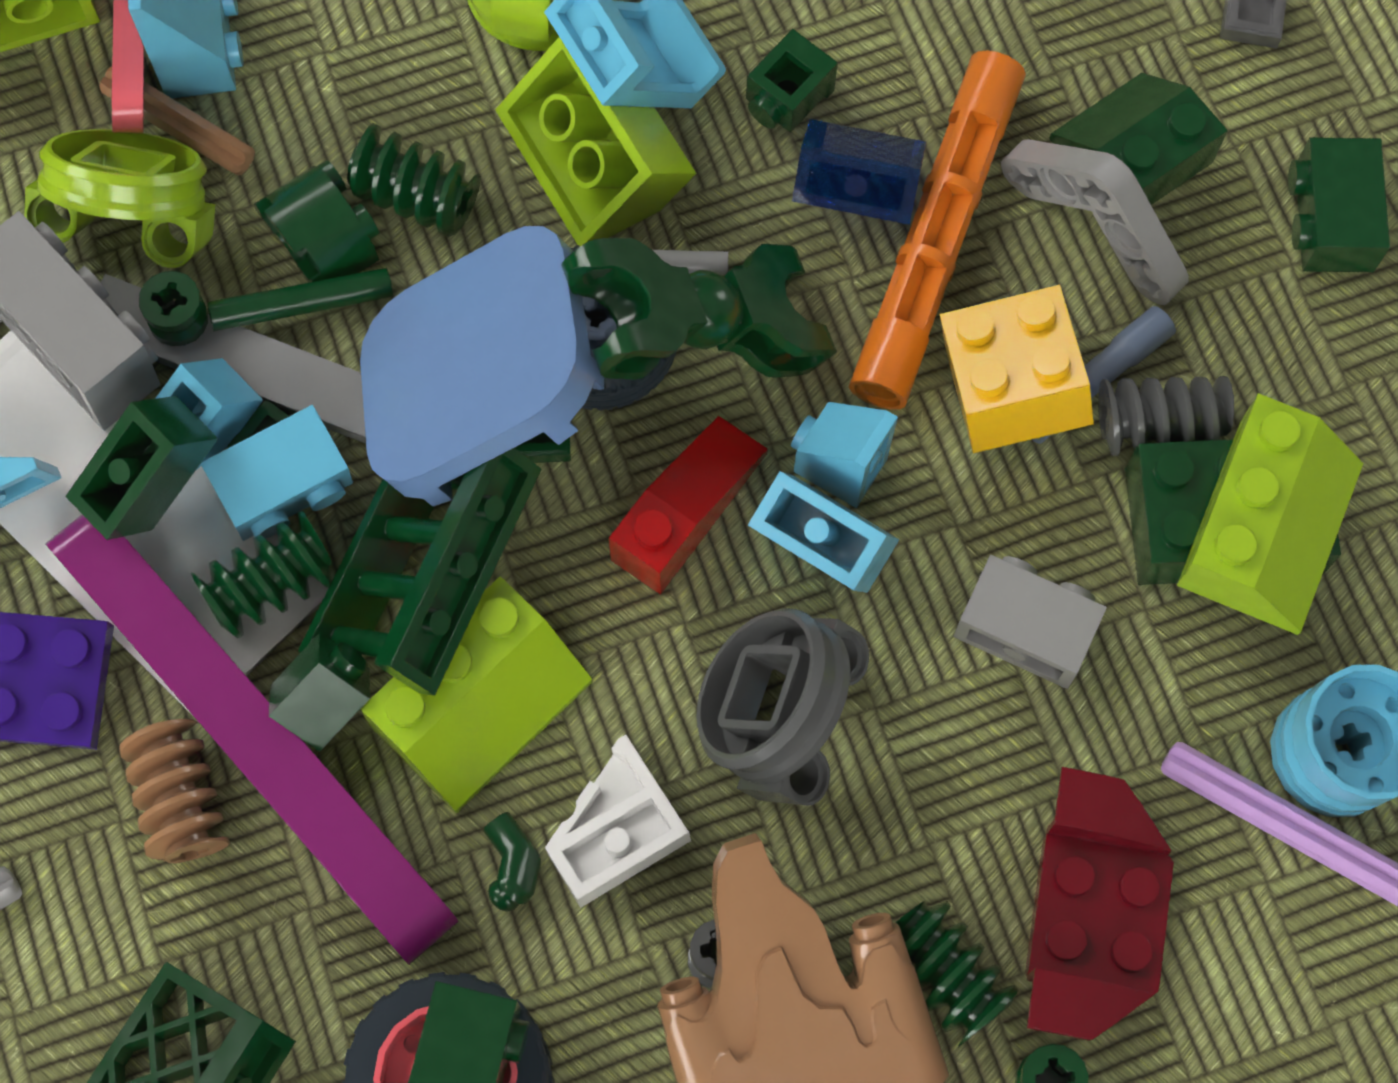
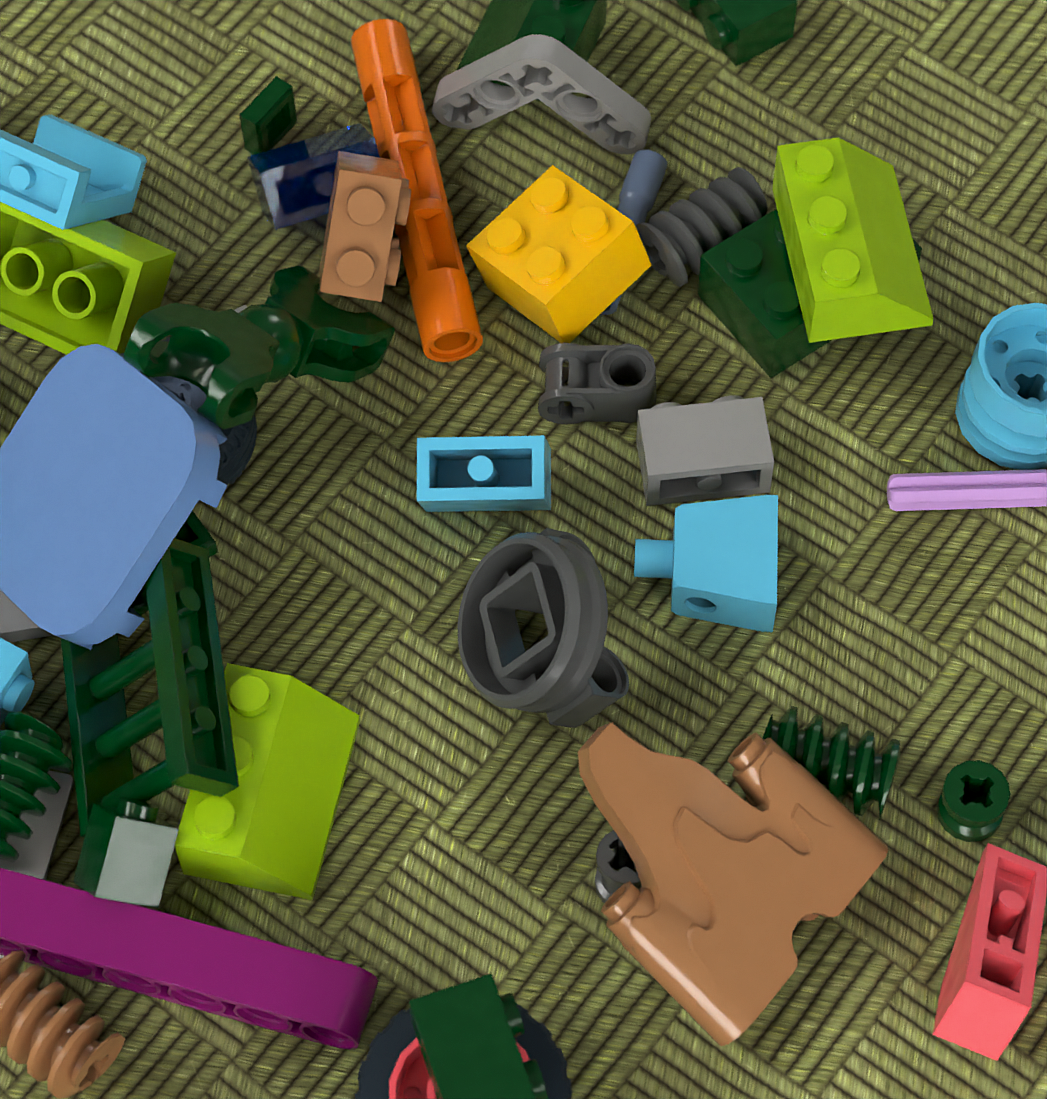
camera: 30 degrees left, 10 degrees down
(518, 866) = (399, 903): dark green arm -> none
(616, 828) = (465, 821): white wing -> none
(684, 504) = (345, 528): red slope -> none
(792, 67) = (207, 150): dark green brick -> none
(844, 449) = (455, 392): medium azure slope -> none
(854, 90) = (268, 117): none -> dark green tile
(858, 247) = (360, 225): none -> medium nougat brick
(967, 494) = (594, 382): none -> dark grey piece
(975, 729) = (719, 561): none -> medium azure torso
(1097, 909) = (913, 638): dark red piece -> none

